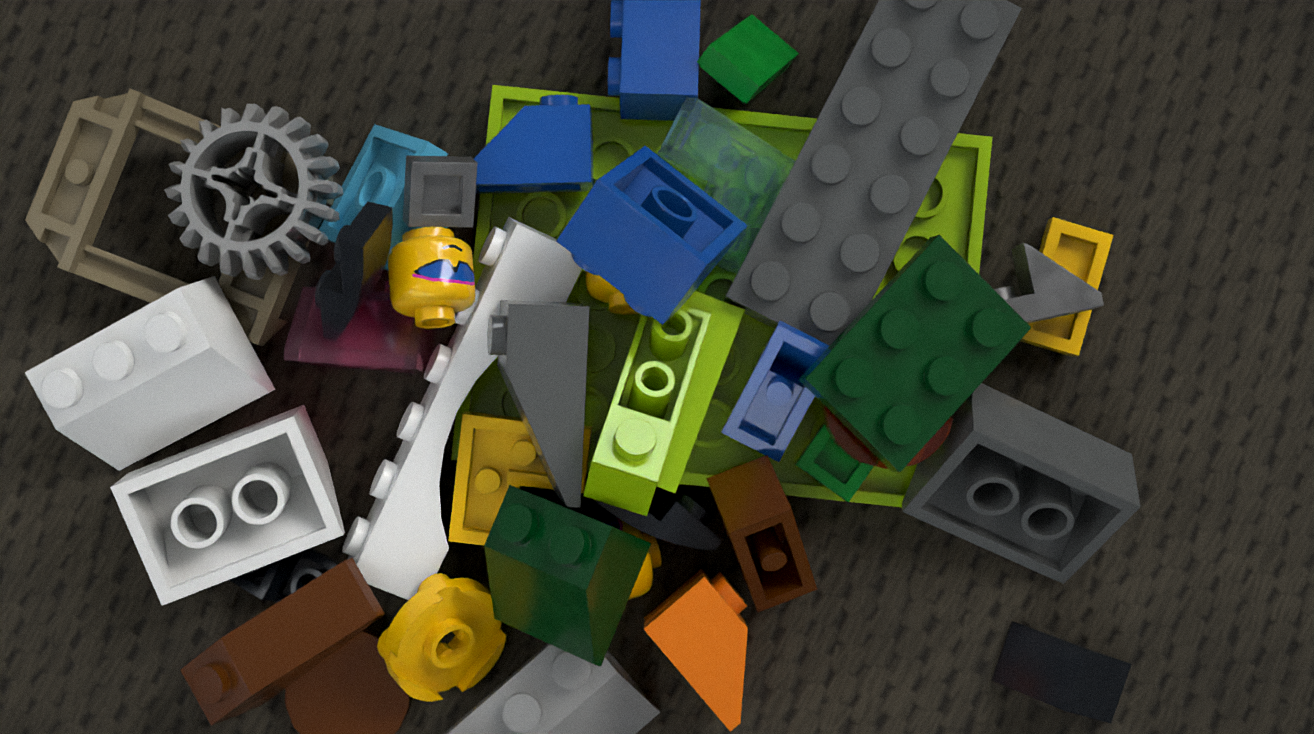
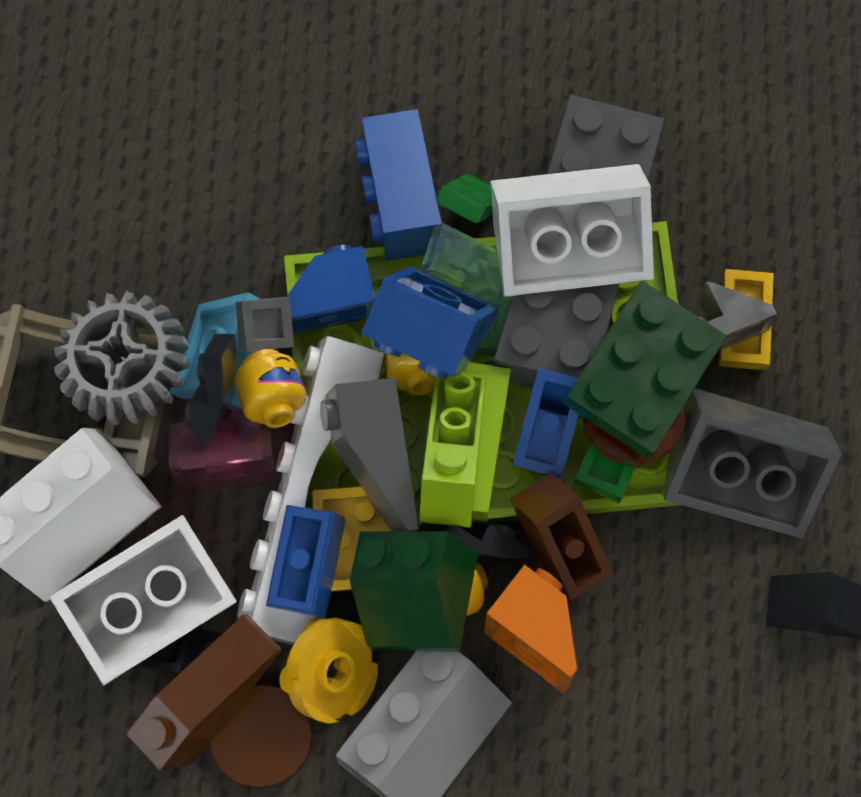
camera: 15 degrees left, 15 degrees down
(436, 506) = (306, 561): none -> blue slope
(865, 148) = (573, 229): none -> white slope

